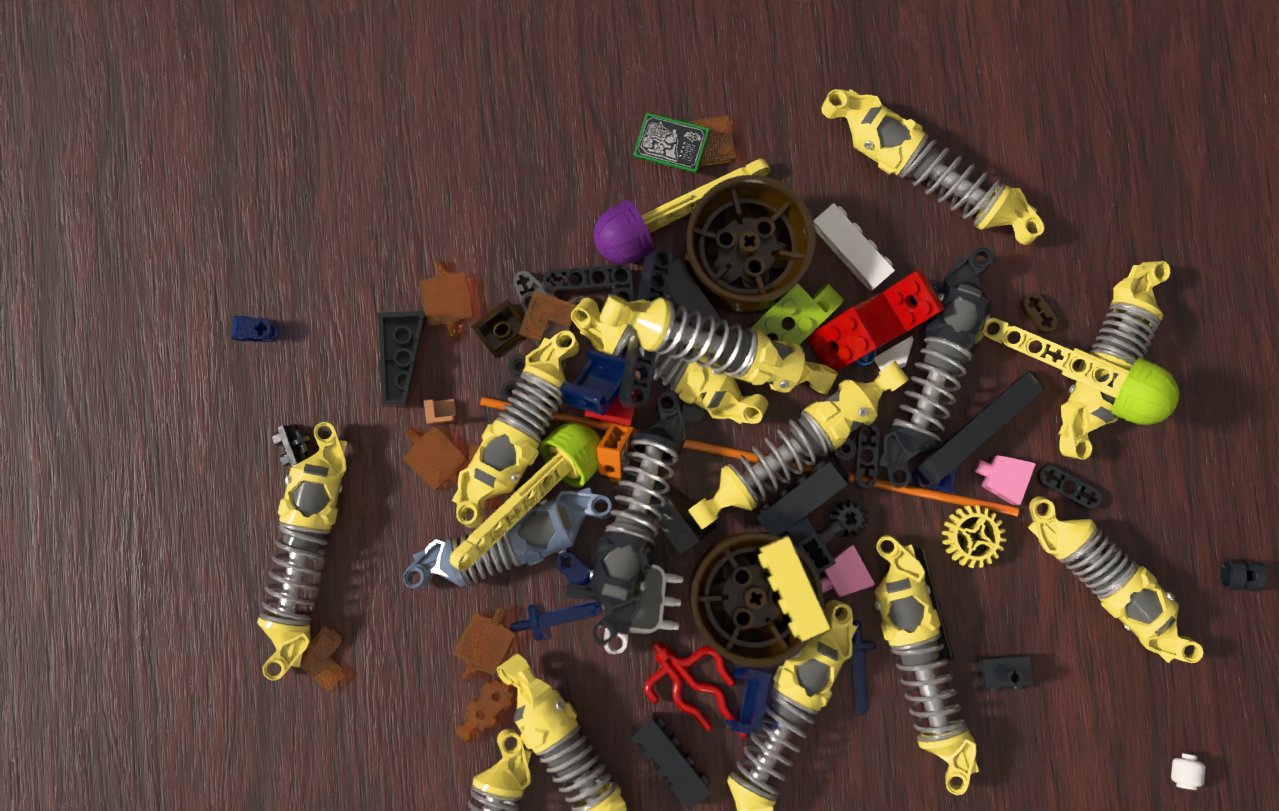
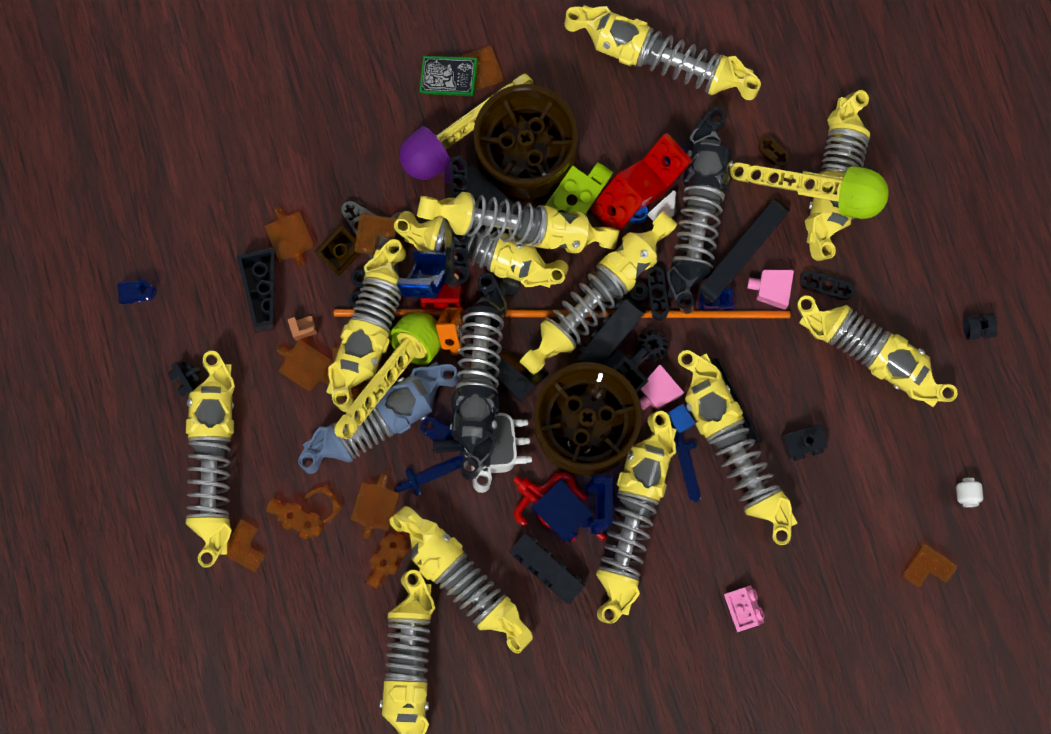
camera: 10 degrees left, 5 degrees down
(394, 639) = (299, 519): none -> clear orange brick
(439, 631) = (336, 506): none -> clear orange cap
(587, 284) = (402, 200): black beam -> none
(702, 698) = (562, 511): none -> clear blue panel
(794, 589) = (614, 398): light yellow brick -> none
(852, 247) = (612, 130): white brick -> none
(864, 614) = (681, 418): none -> blue panel
(978, 528) = (761, 324): light yellow gear -> none

